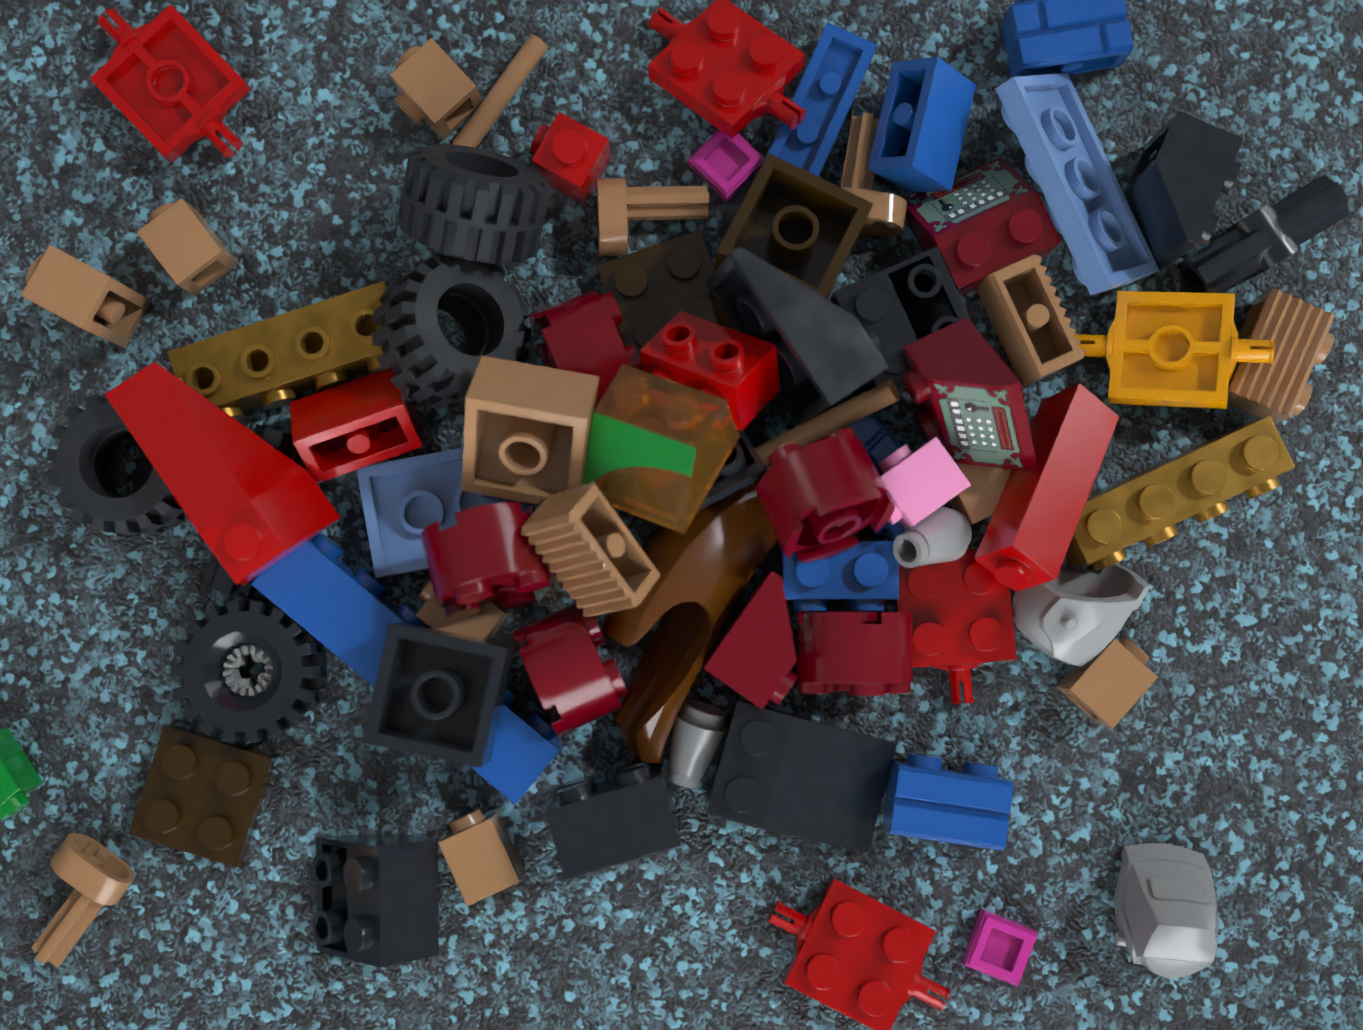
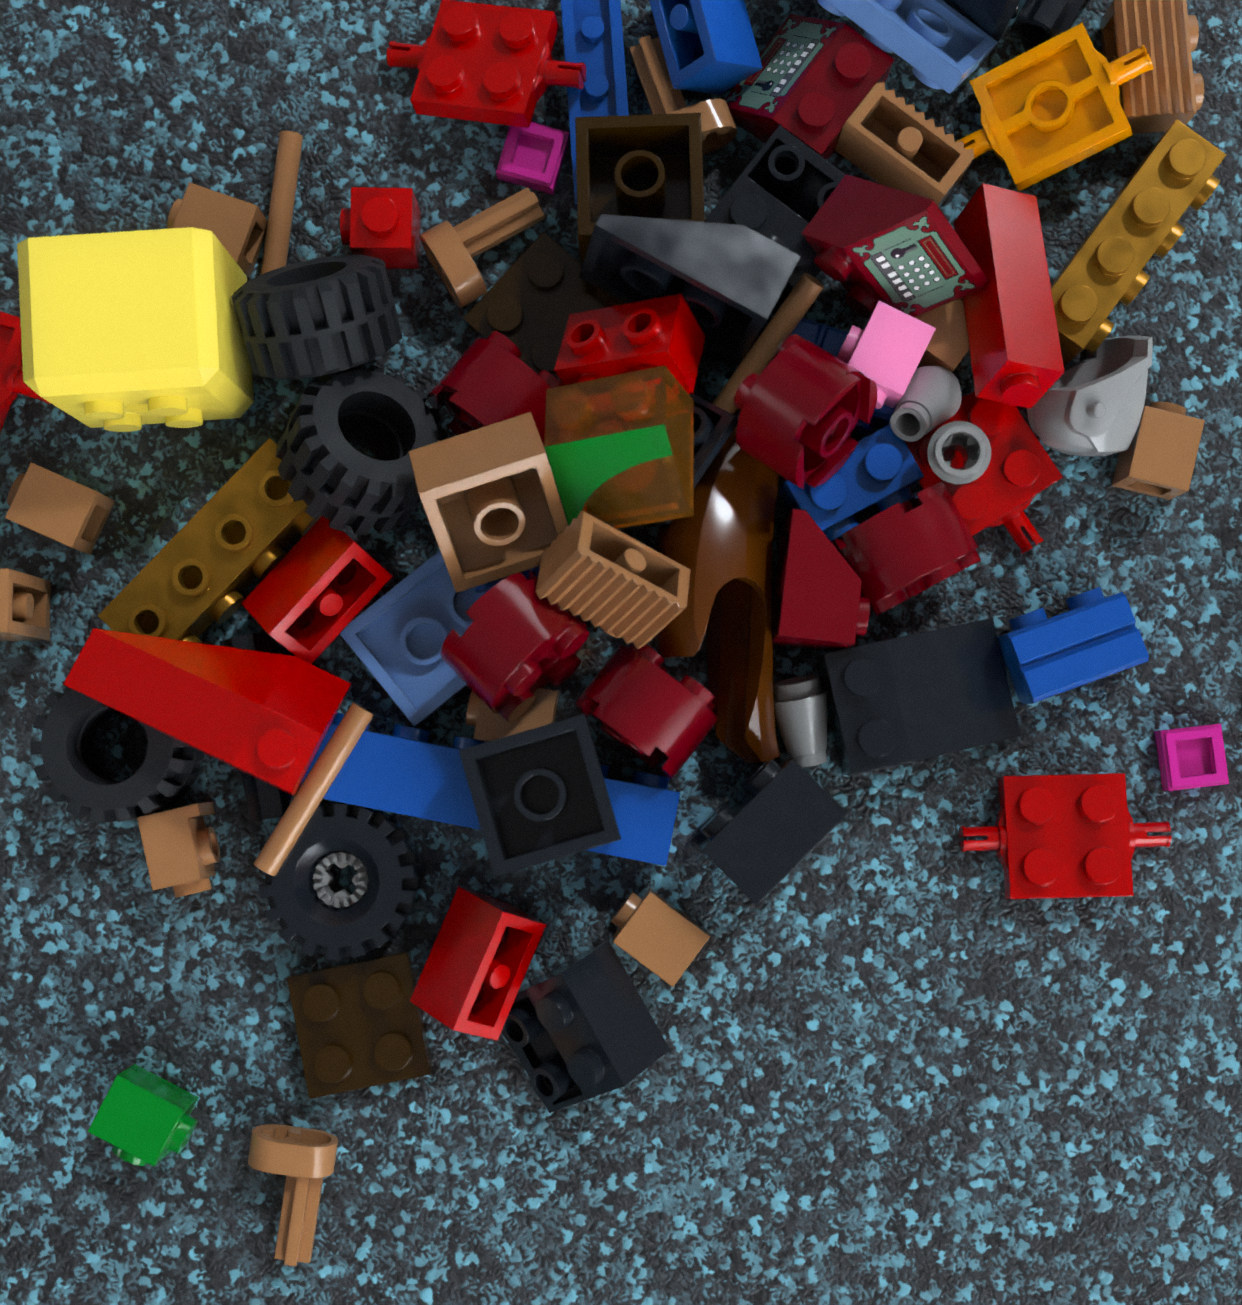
camera: 30 degrees left, 0 degrees up
(134, 575) = (180, 848): none -> medium nougat brick
(263, 587) = (313, 789): none -> medium nougat bar
(316, 134) = (134, 327): none -> light yellow plate
(320, 800) = (477, 964): none -> red brick
(952, 593) = (967, 440): none -> light grey cone

